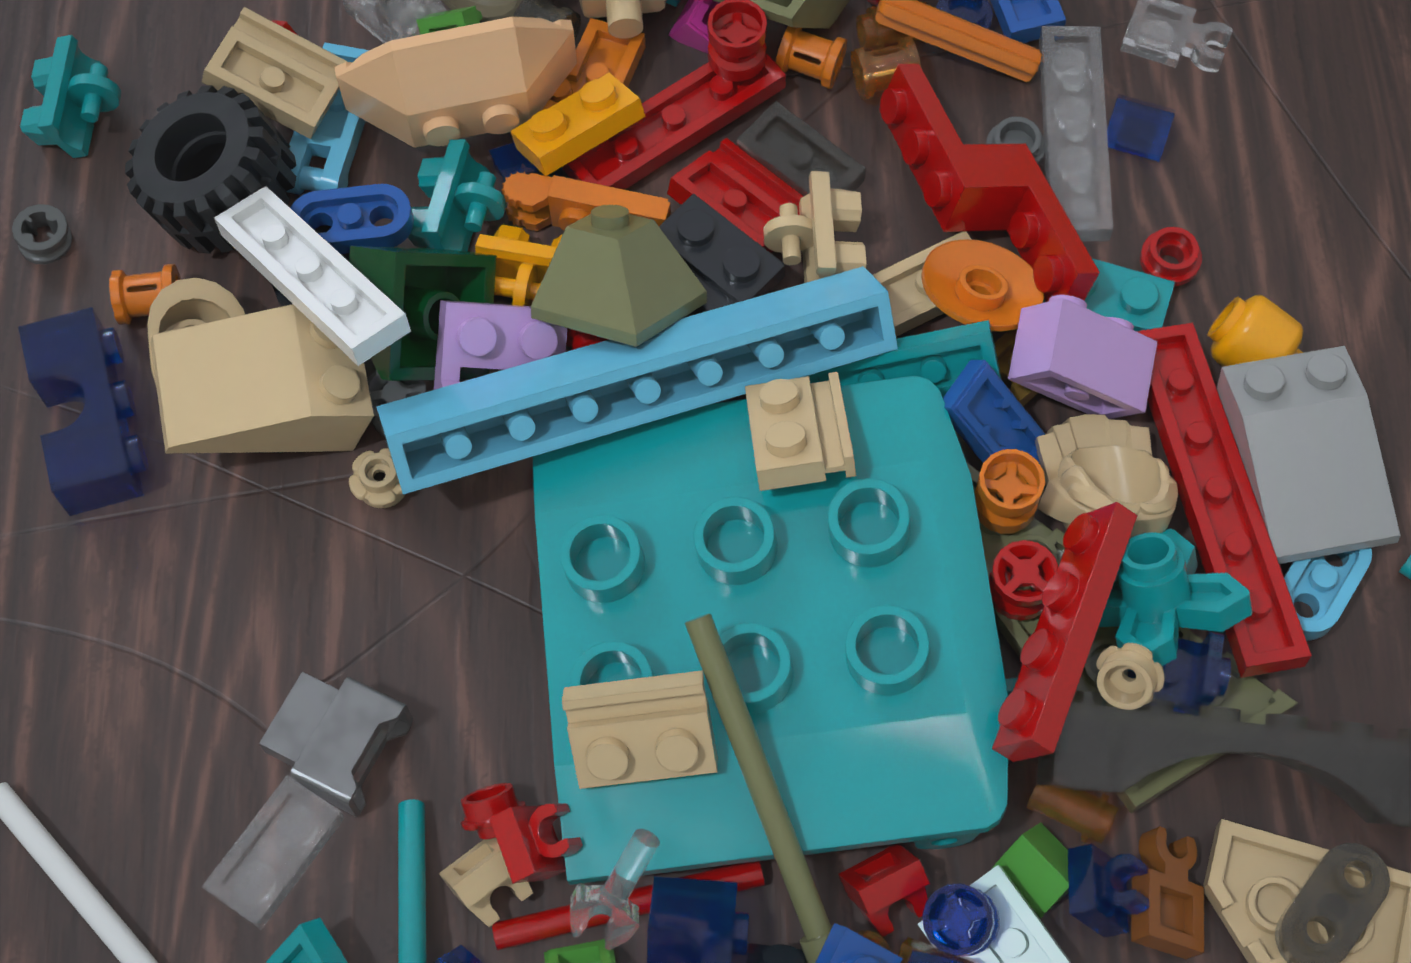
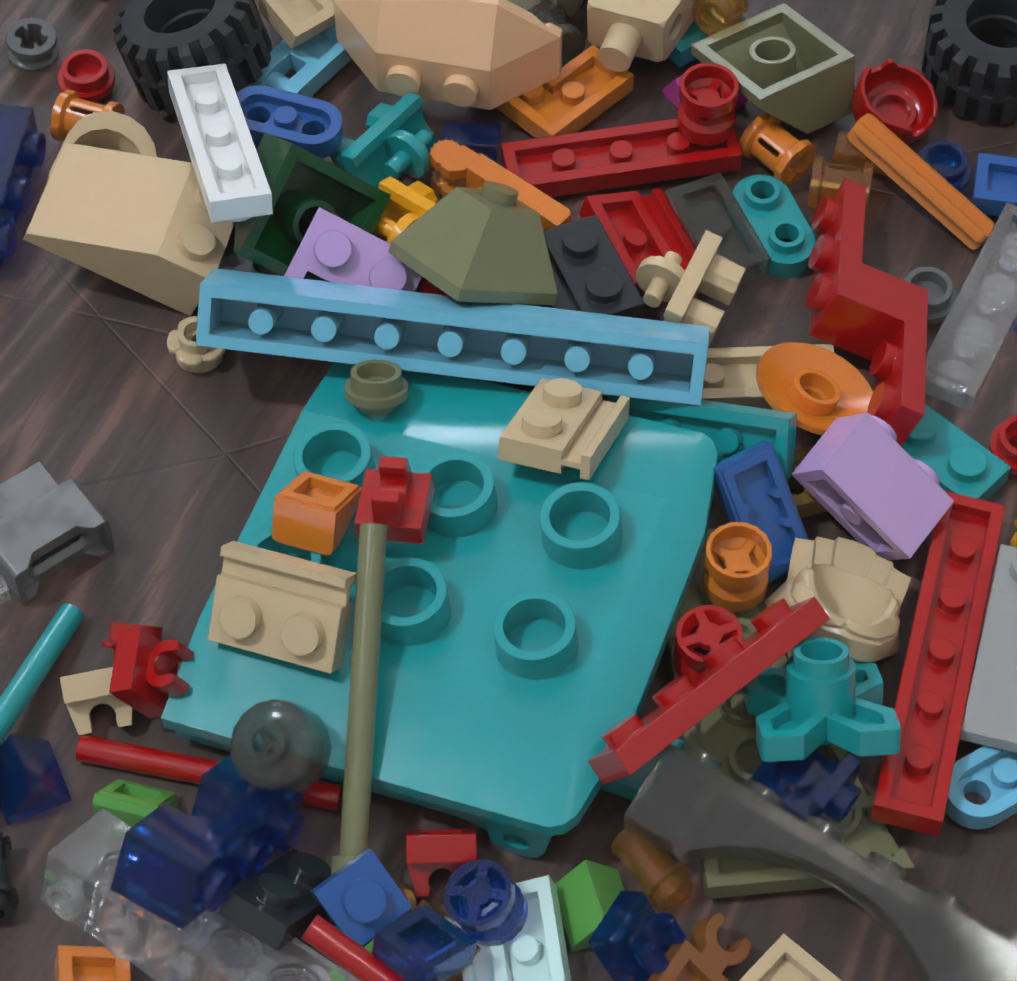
camera: 25 degrees right, 10 degrees down
(117, 246) = (87, 74): none -> red plate
(577, 123) = (527, 120): light orange plate -> none
(598, 462) = (376, 387): none -> olive plate
(614, 895) = (192, 747): clear bar -> none
(621, 620) = (314, 512): none -> orange slope
(694, 580) = (397, 500): none -> red tile
(702, 888) = (300, 742): none -> clear smoke head
(846, 126) = (777, 217): none -> teal plate
(1125, 691) = (728, 749): tan plate -> none

